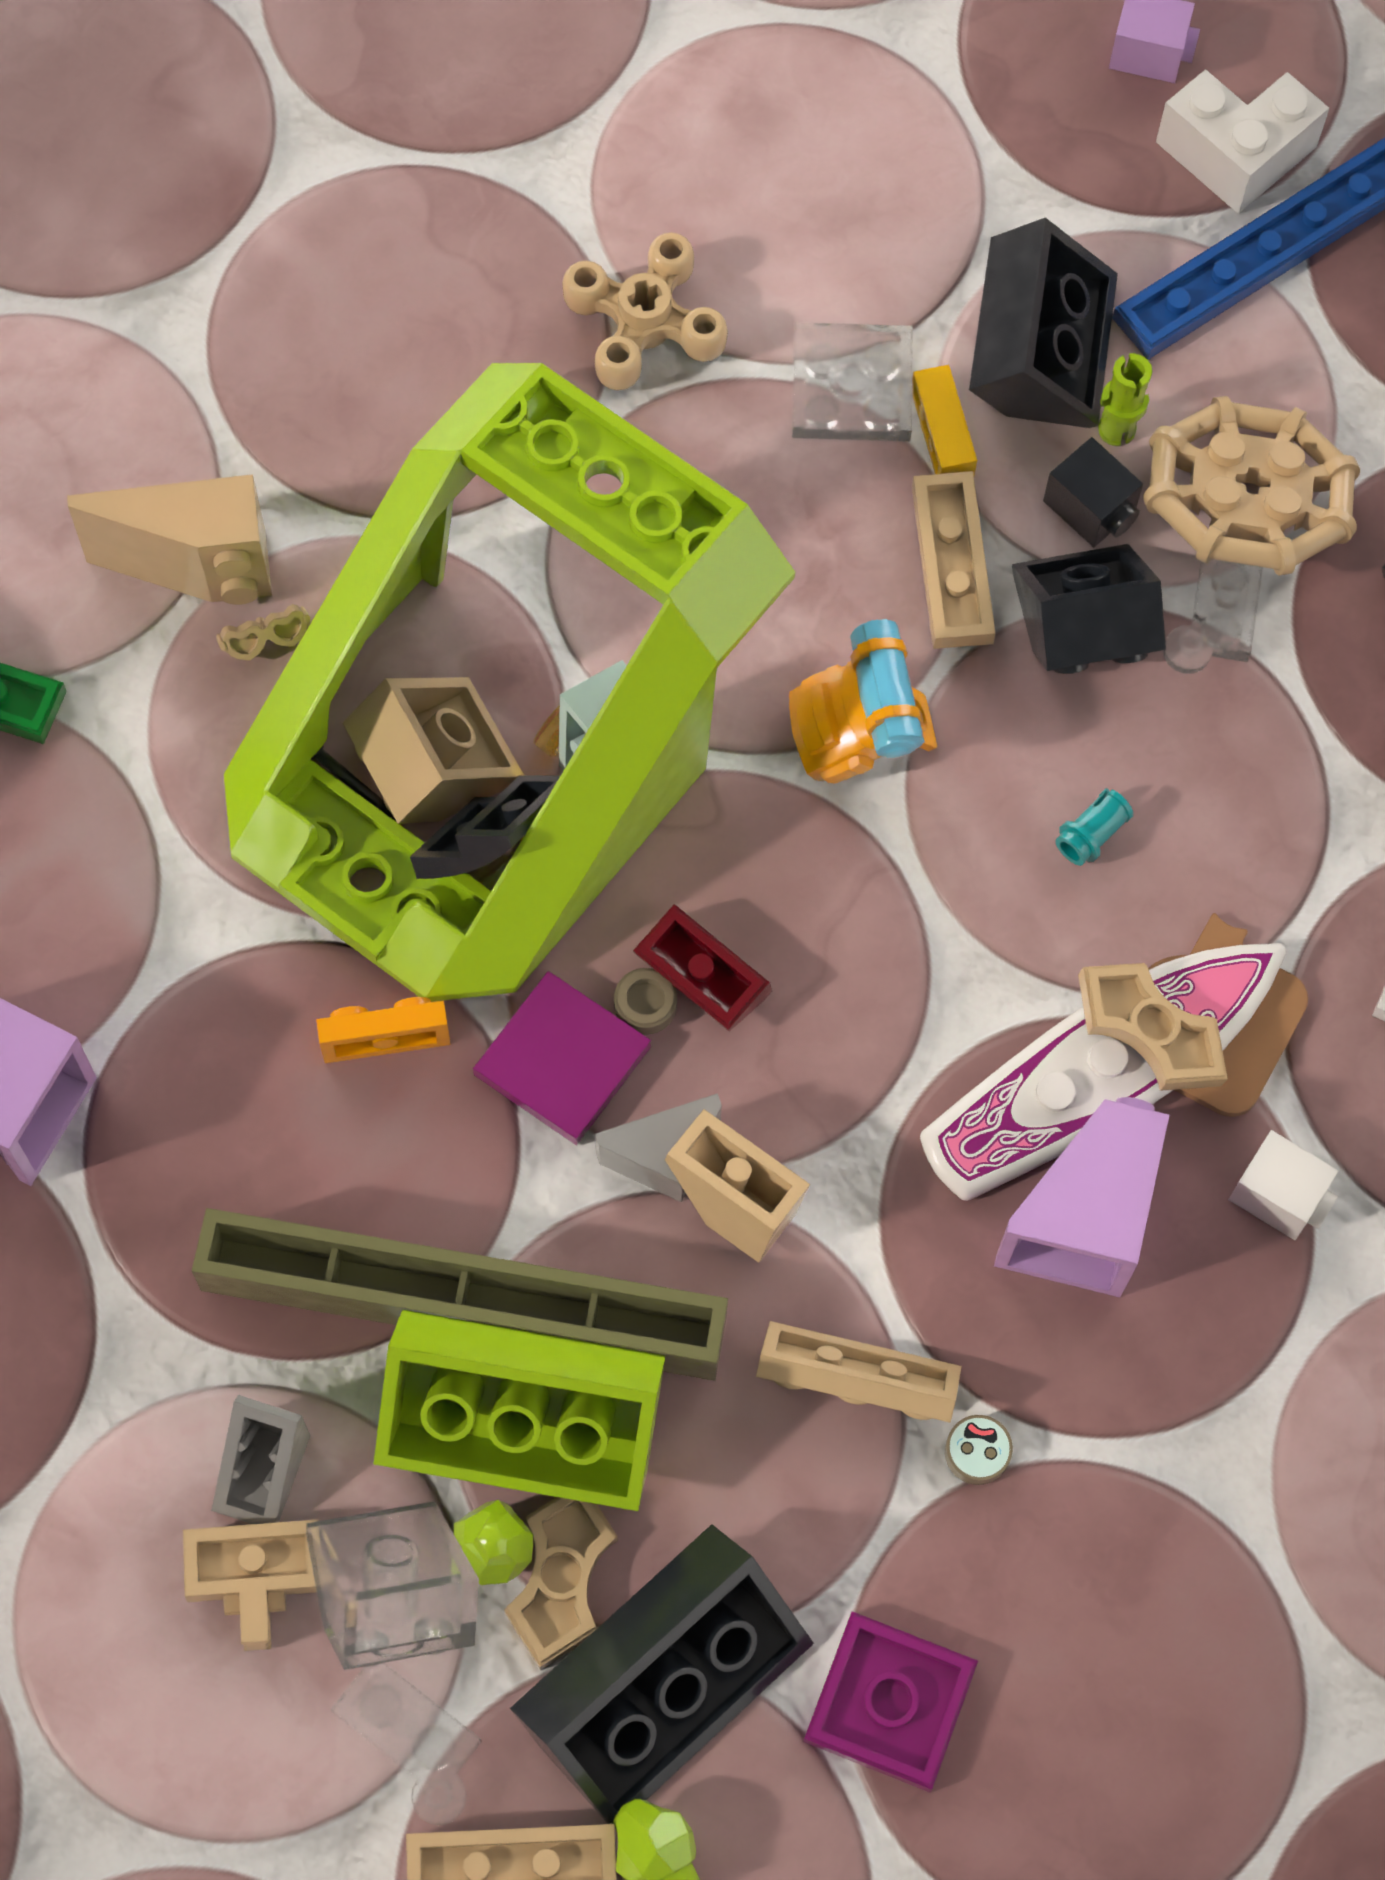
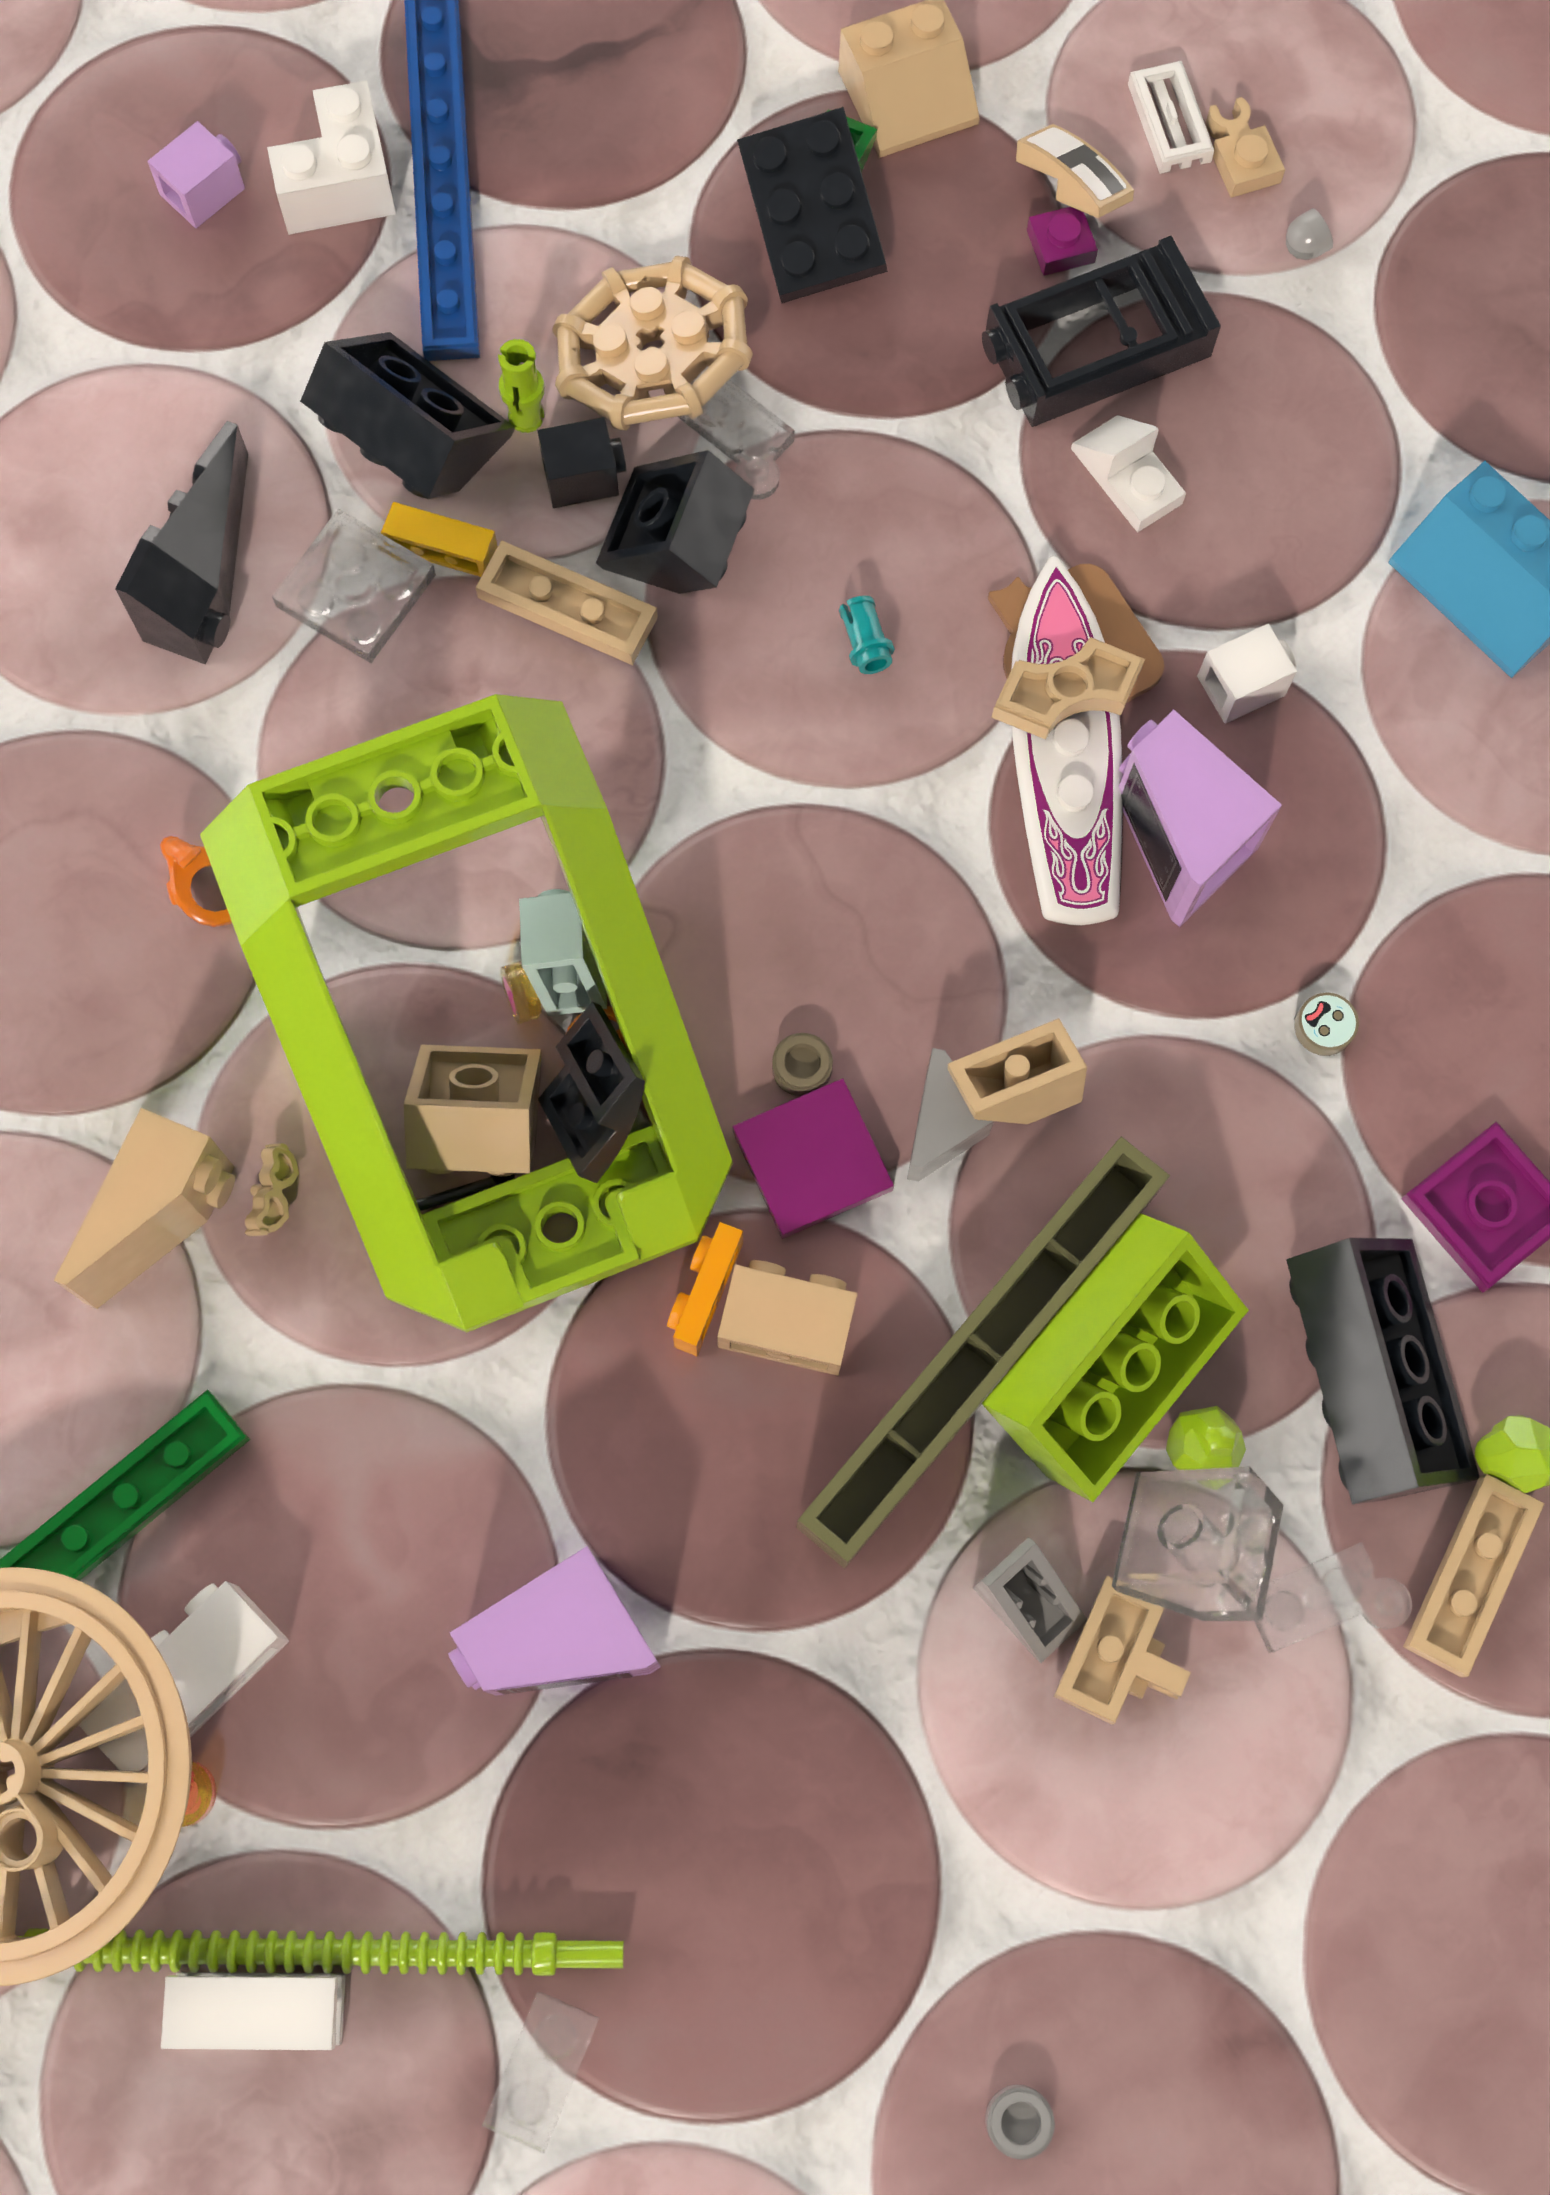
camera: 60 degrees left, 5 degrees up
(396, 1113) = (787, 1317): none -> tan brick
(553, 1607) = (1275, 1424): tan tile -> none
(644, 311) = (167, 693): tan gear -> none
(703, 968) = (806, 1001): dark red slope -> none
(772, 242) = (185, 571): none -> black wedge
(859, 1372) = (1218, 1075): tan plate -> none
(860, 709) = (665, 744): light orange piece -> none

